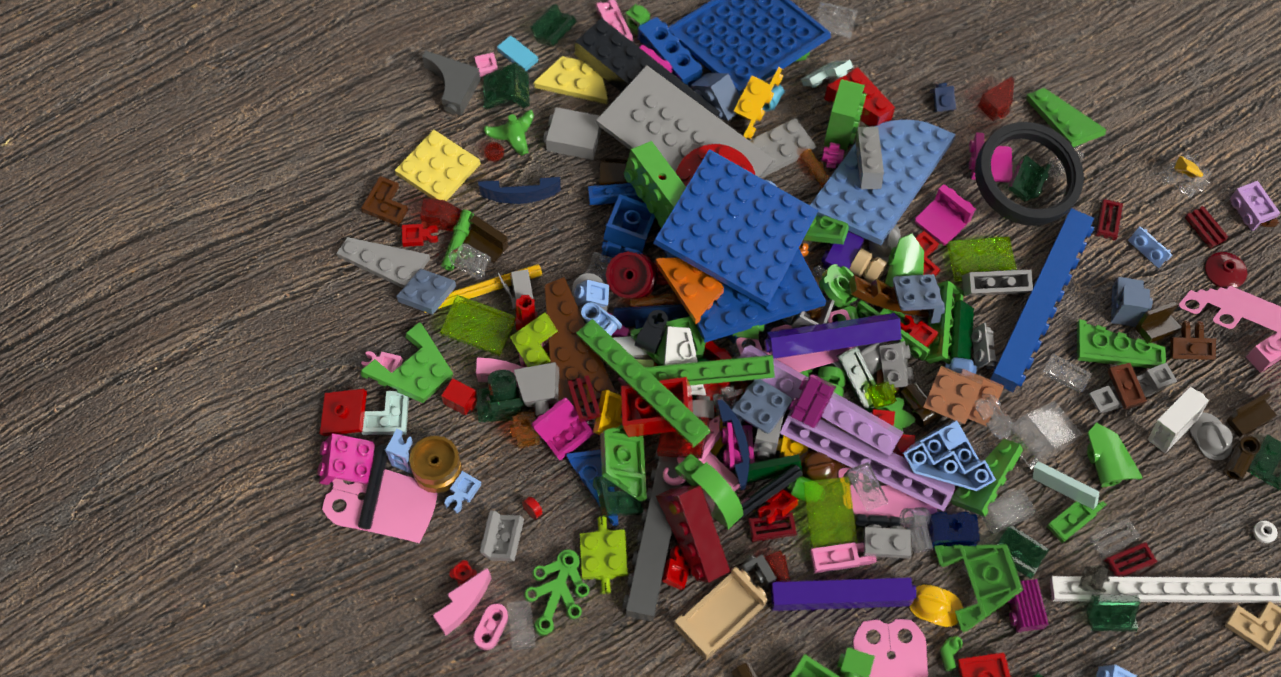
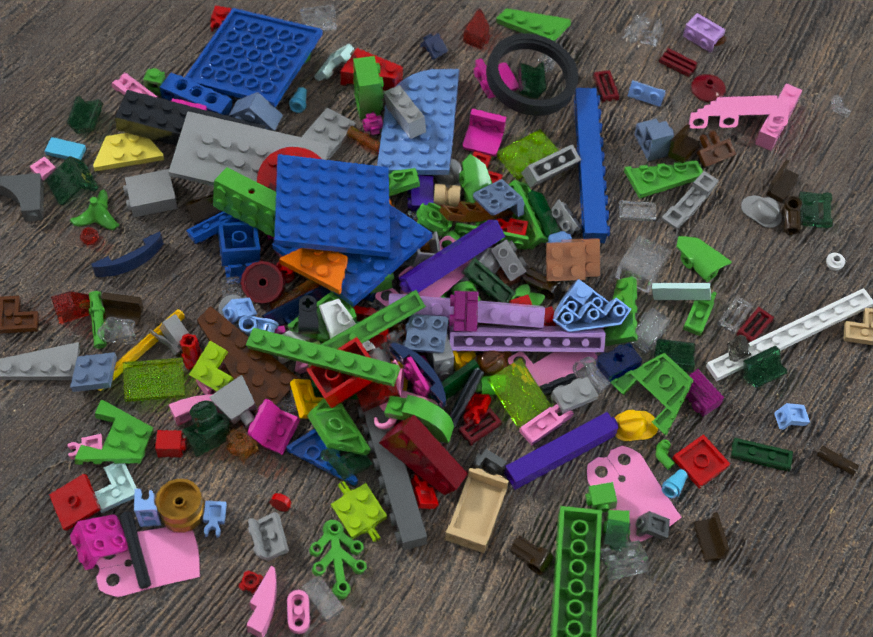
camera: 30 degrees left, 5 degrees down
(416, 234) = (59, 331): red plate -> none
(437, 166) = (45, 268): light yellow plate -> none
(580, 382) = (269, 383): dark red tile -> none
(754, 98) = (288, 104): yellow bracket -> none
(779, 566) = (502, 451): clear red cone -> none
(867, 486) = (538, 359): clear plate -> none
(882, 394) = (511, 286): clear neon green tile -> none
(991, 407) = (597, 257): clear hinge -> none
(1127, 386) = (685, 200): copper plate -> none
(1178, 419) = (734, 207): white window -> none
(1187, 167) = (641, 23): yellow slope -> none

